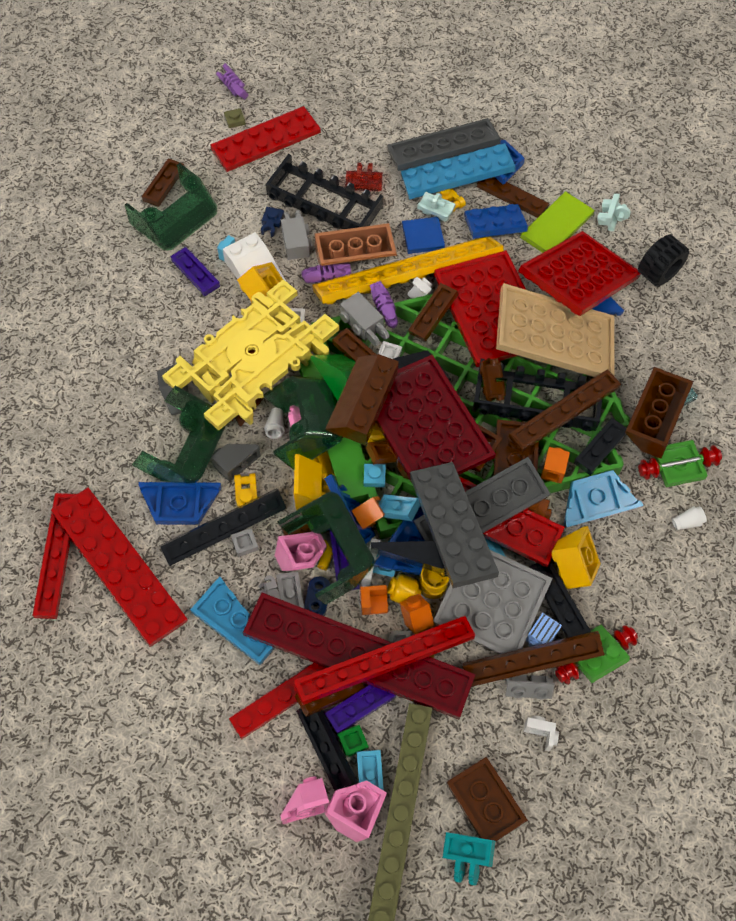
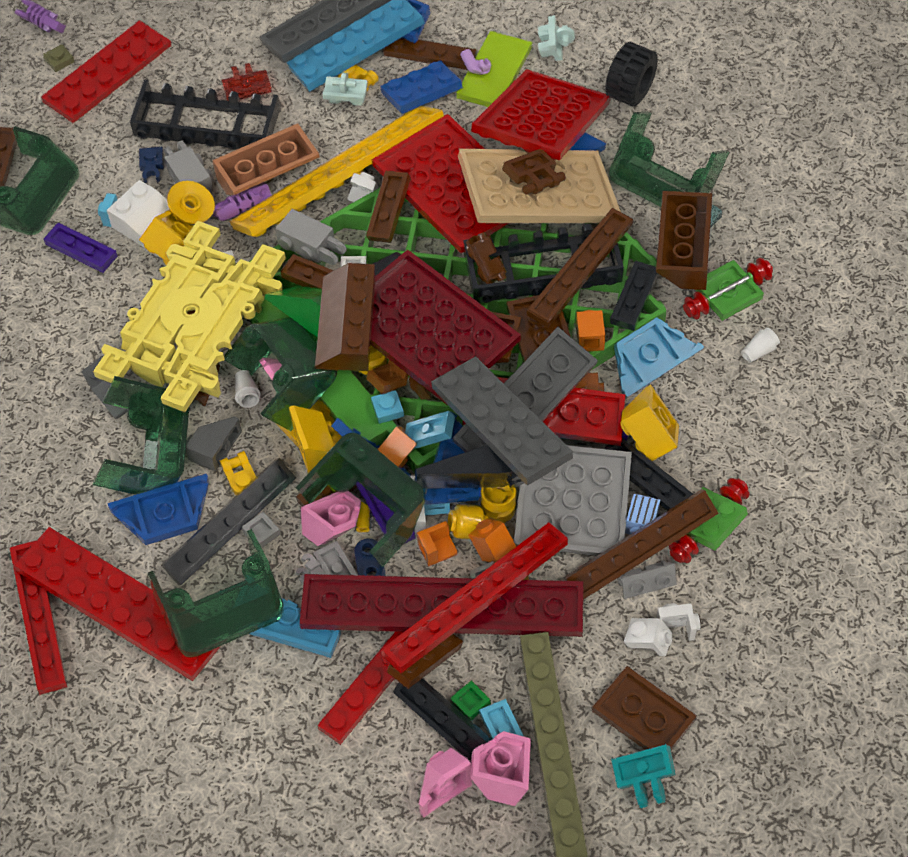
camera: 15 degrees left, 5 degrees down
(189, 605) = (224, 614): none -> clear green windscreen
(292, 256) = (194, 195): none -> yellow dish
(357, 707) = (463, 663): dark purple plate -> none
(384, 304) = (326, 214): medium lavender hinge -> none
(423, 235) = (340, 127): blue tile -> none
(513, 735) = (650, 634): none -> white bracket
(543, 217) = (475, 66): none -> lavender arm
(552, 315) = (531, 166): none -> reddish brown plate
(648, 351) = (640, 175): none -> clear green windscreen

